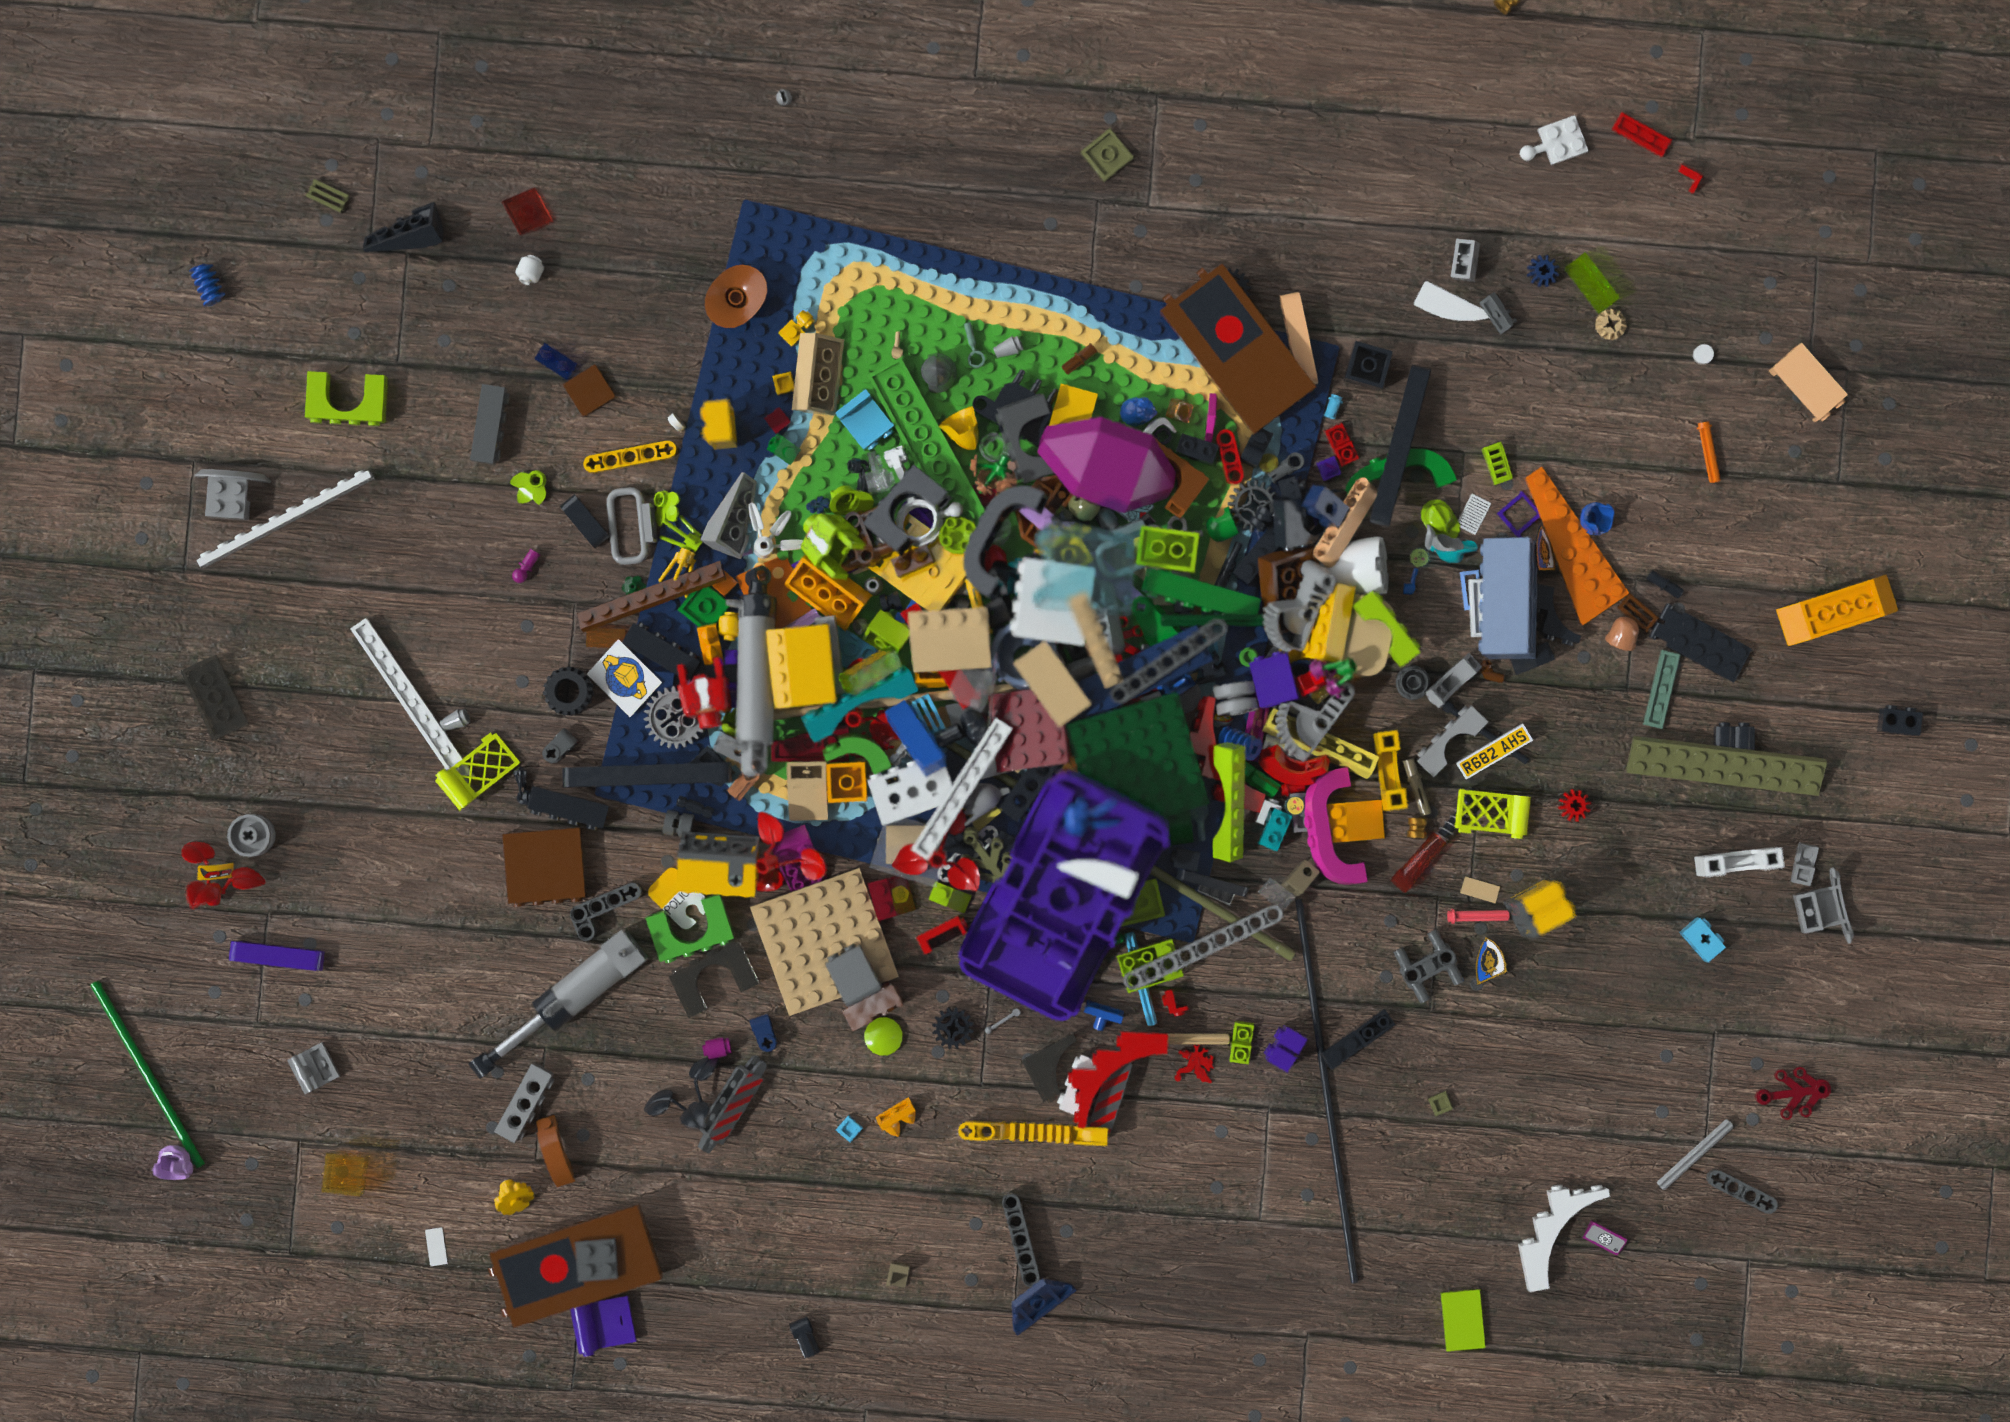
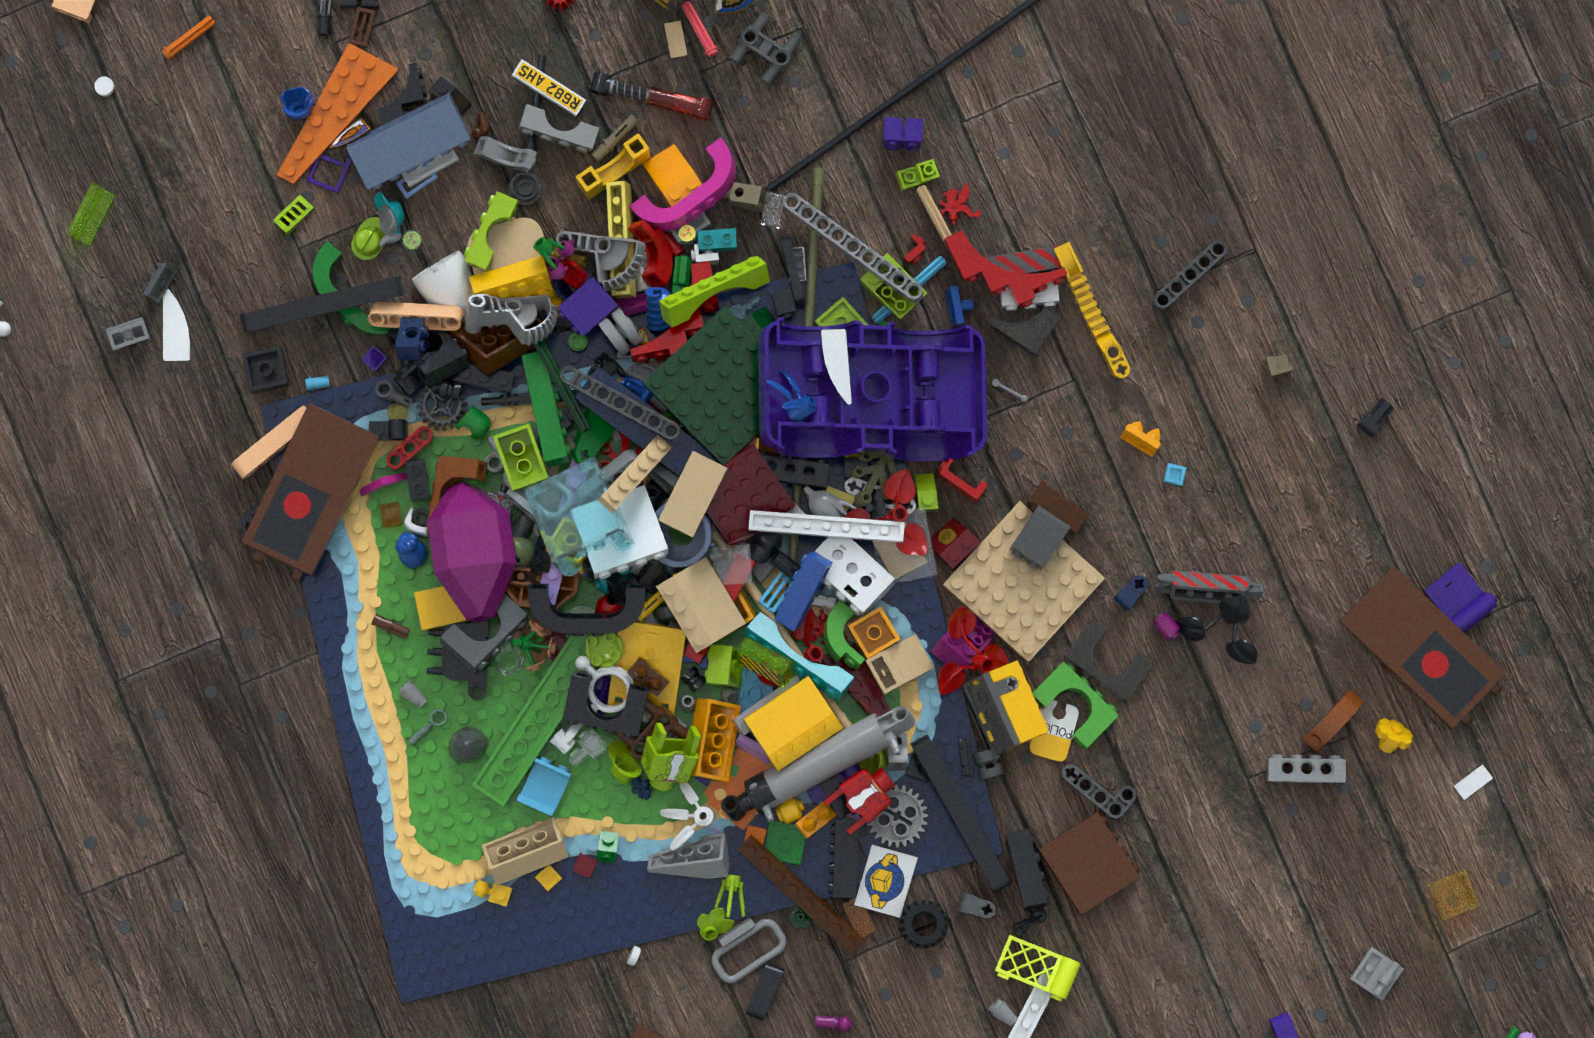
camera: 125 degrees left, 5 degrees down
(572, 993) = (1192, 779): light grey piece -> none
(596, 1259) = (1407, 630): dark grey plate -> none
(620, 456) = (688, 991): yellow beam -> none
(684, 559) = (751, 882): yellow plant -> none
(720, 424) = (616, 910): yellow brick -> none
(735, 296) = (493, 959): dark orange hat -> none
(742, 785) = (925, 725): nougat piece -> none
(788, 96) = (293, 1018): light grey hinge -> none
(855, 467) = (590, 774): black piece -> none
(883, 1036) = (1078, 486): lime dish -> none
(897, 352) = (469, 791): tan hand -> none
(961, 1029) = (1042, 442): black gear -> none
(962, 428) = (506, 697): yellow helmet -> none
(1038, 1302) = (1236, 232): dark blue wing -> none
(1107, 155) = (194, 698): olive tile -> none
(1341, 444) = (347, 358): red slope -> none
(1357, 1039) = (861, 77): black slope -> none
(1410, 588) = (443, 233): blue hand -> none
(1417, 828) = (650, 119): pearl gold wheel -> none
(1473, 514) = (349, 212): white sticker -> none
(1515, 819) = (595, 40): neon yellow piece -> none
(1547, 277) = (96, 267): dark blue gear -> none
(1608, 333) = (119, 188): tan gear -> none
(1623, 634) = (387, 29): nougat hair -> none

